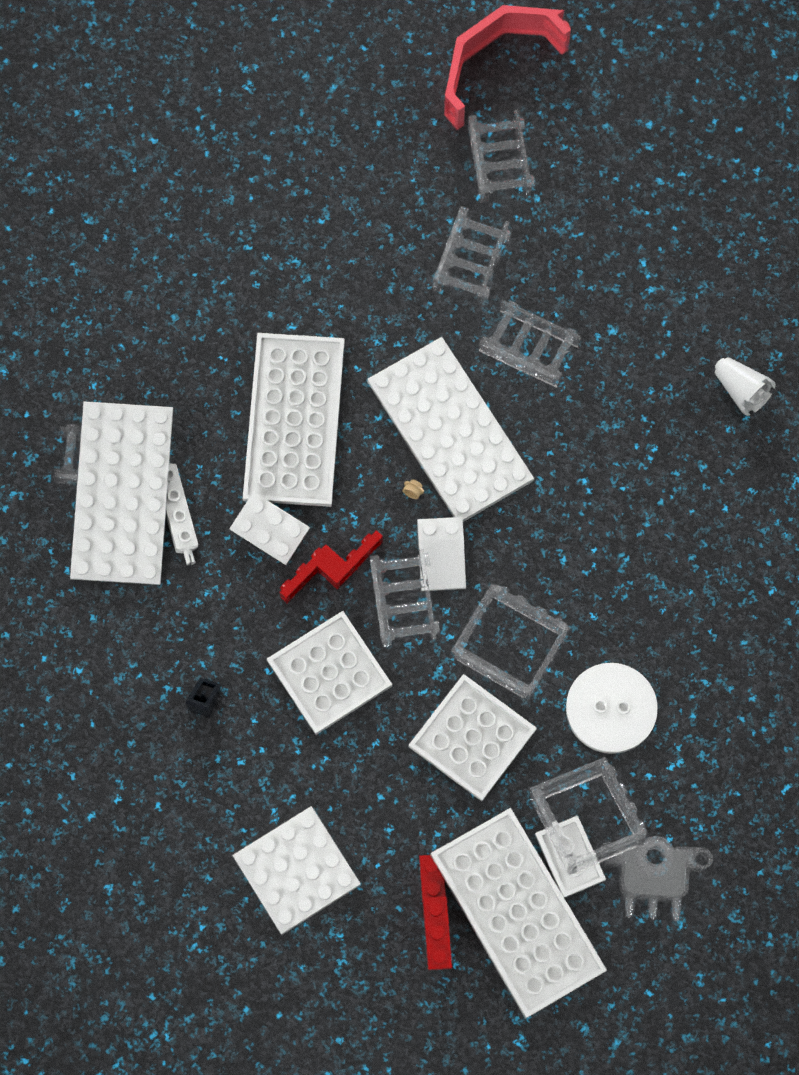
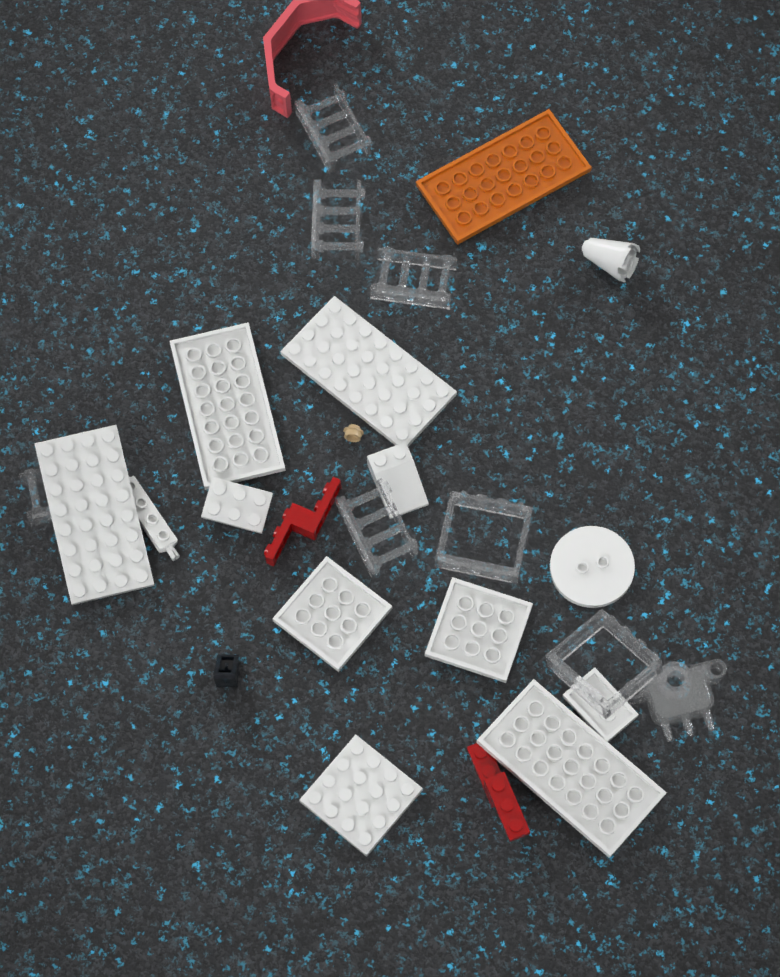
camera: 15 degrees left, 5 degrees down
(660, 262) = (503, 176): none -> orange plate

